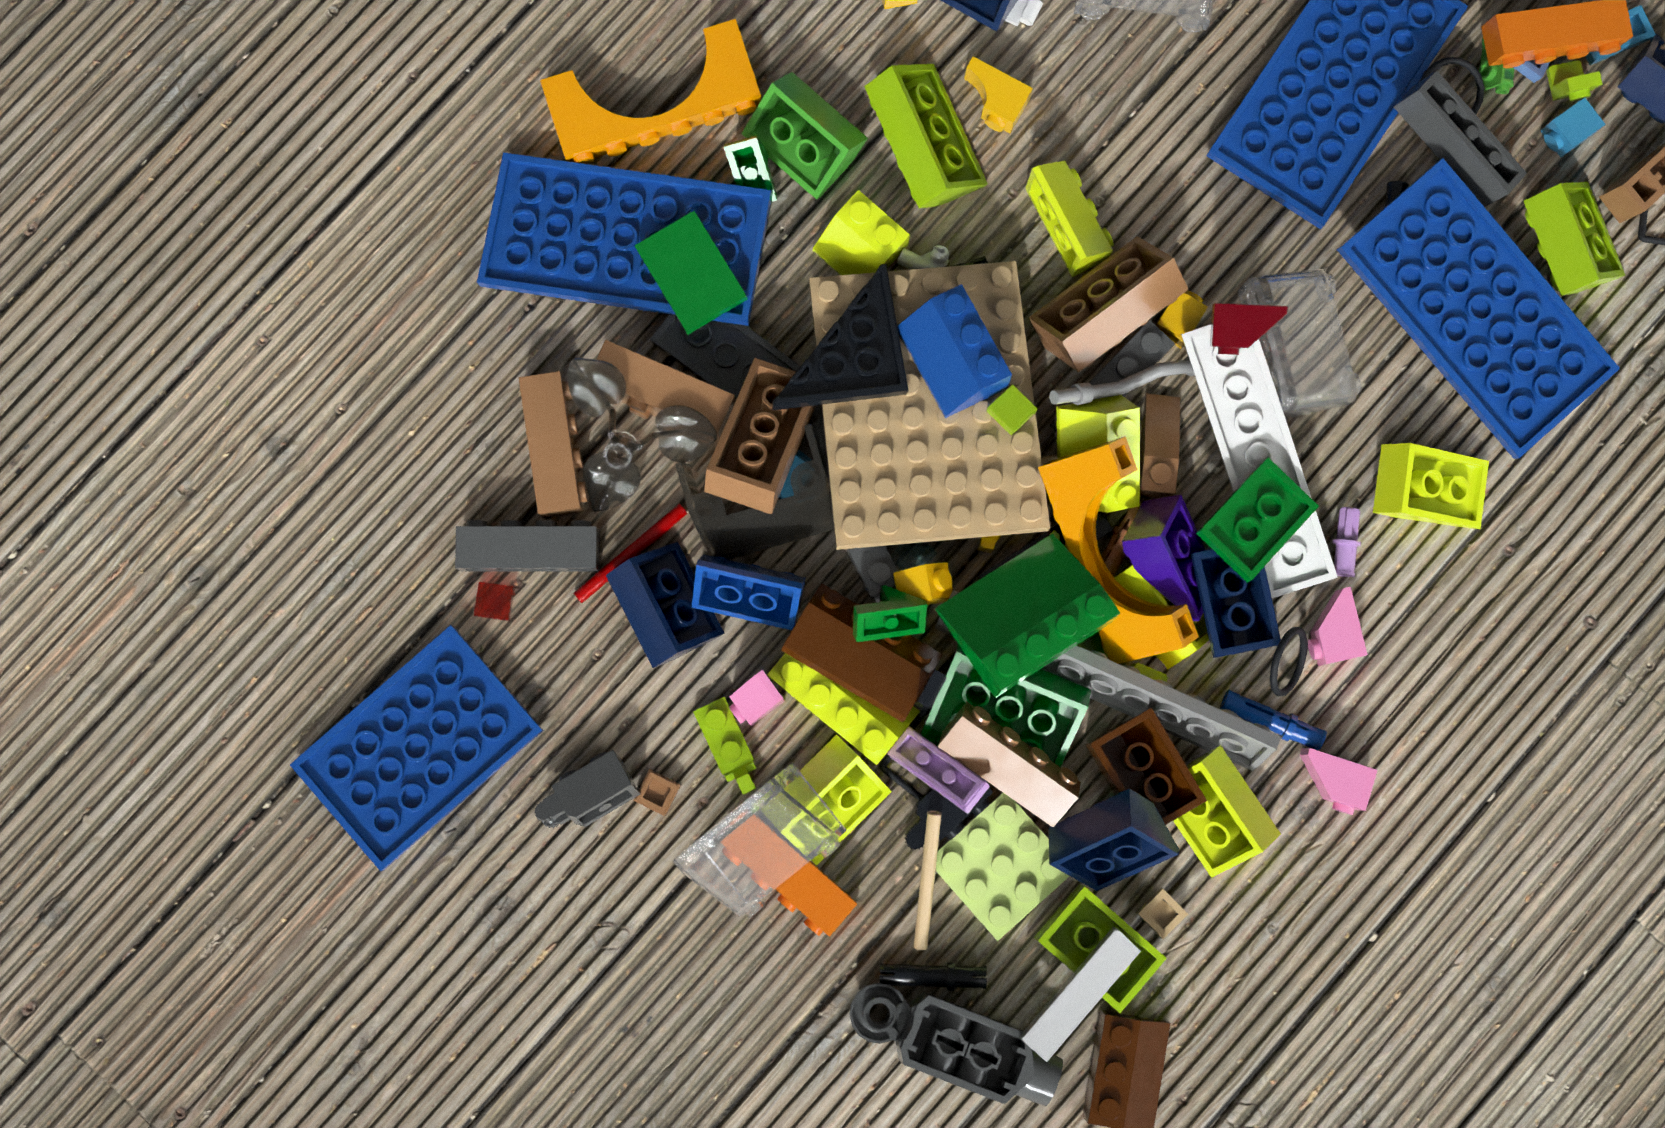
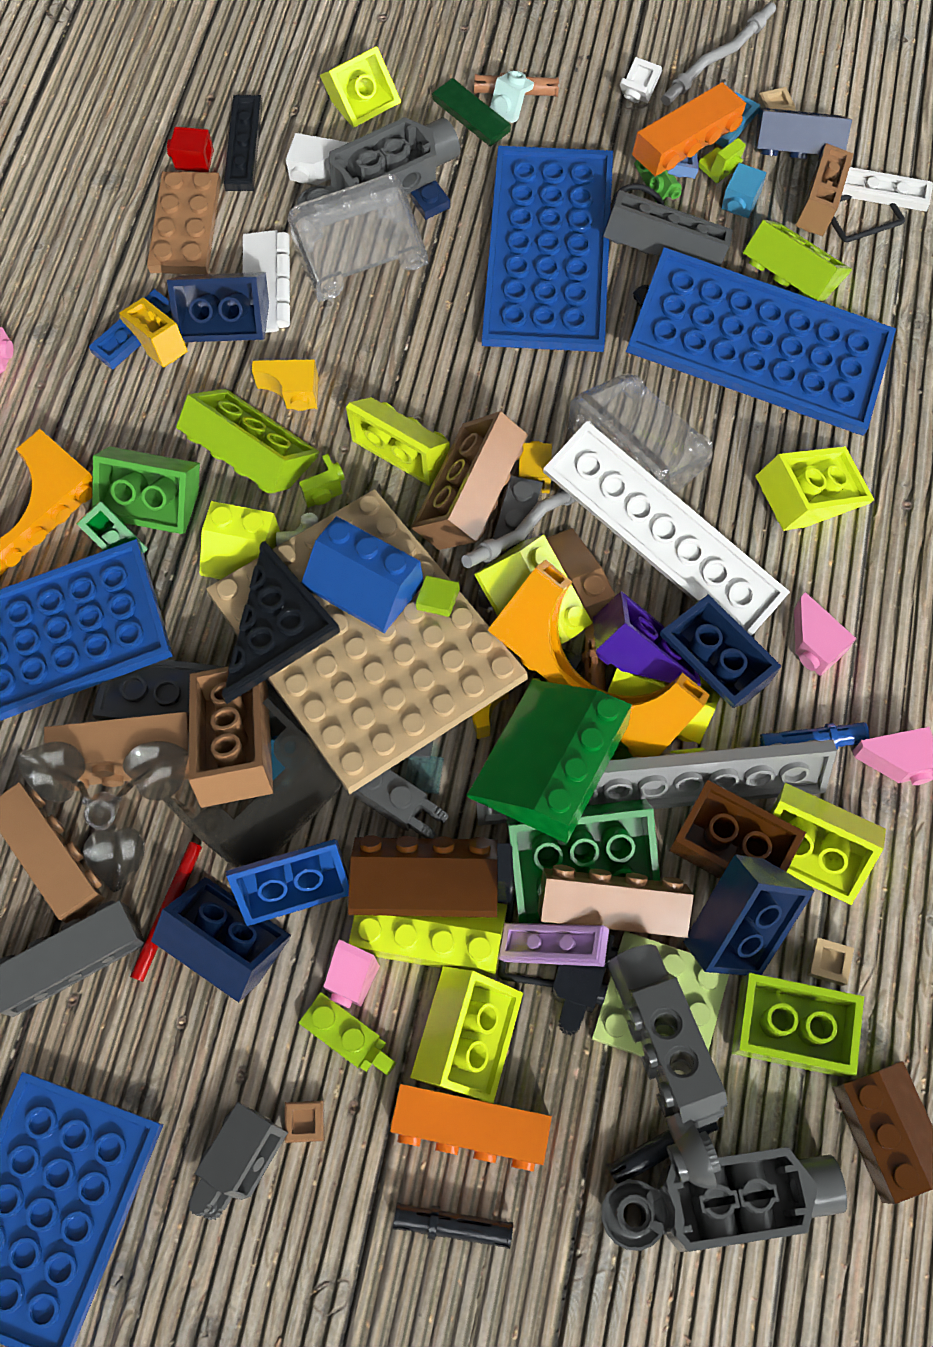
camera: 25 degrees left, 15 degrees down
(494, 601) = (57, 1027): clear red tile -> none
(691, 272) = (98, 636): green tile -> none
(733, 939) = (453, 1225): none -> black pin
(762, 843) = (426, 1109): clear windscreen -> none
(891, 617) = (431, 826): green slope -> none
(927, 581) = (445, 784): yellow arch -> none
(927, 880) = (604, 1055): tan piece -> none
(967, 227) = (324, 486): none -> lime bracket
(989, 868) = (691, 1099): none -> dark grey brick
(1079, 994) = (808, 1079): slope -> none
(1241, 325) = (586, 429): dark red slope -> none
(1257, 519) = (696, 576): green plate -> none
(1300, 664) = (788, 684): black piece -> none
(1346, 541) = (777, 563): lavender axle -> none

